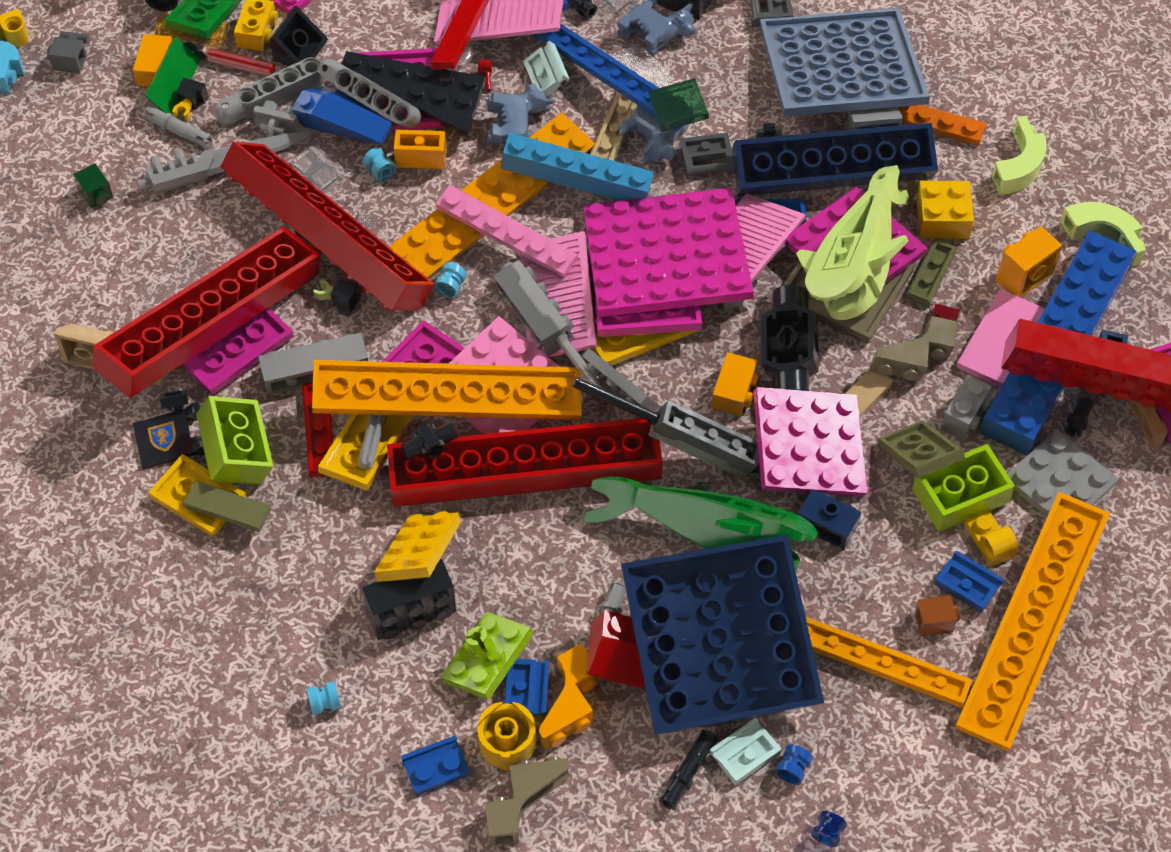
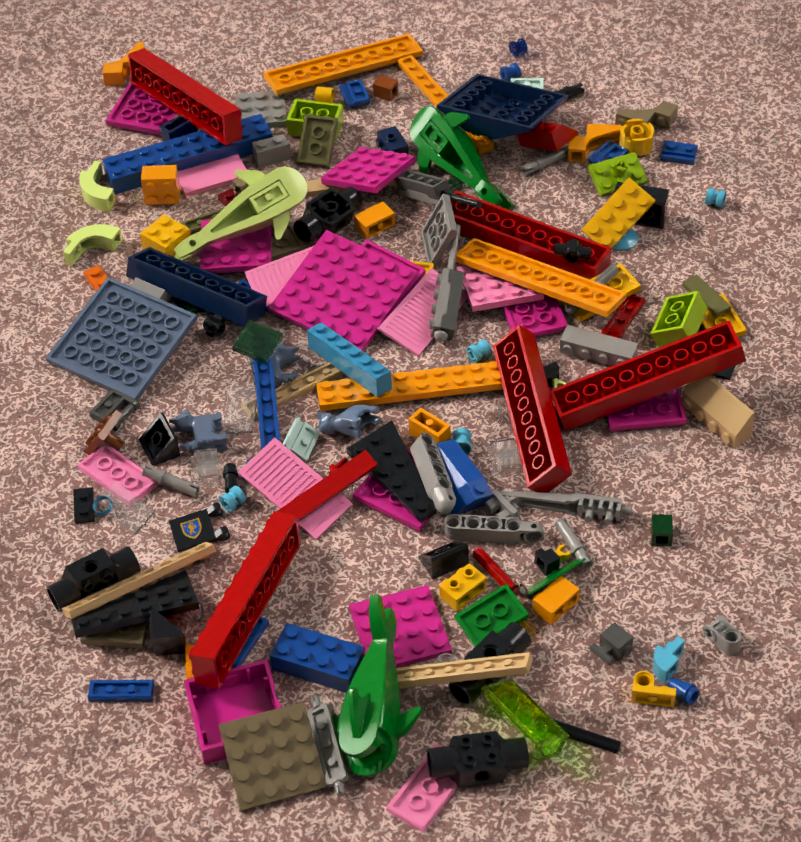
camera: 140 degrees left, 10 degrees down
(506, 231) = (425, 348): bright pink plate -> none

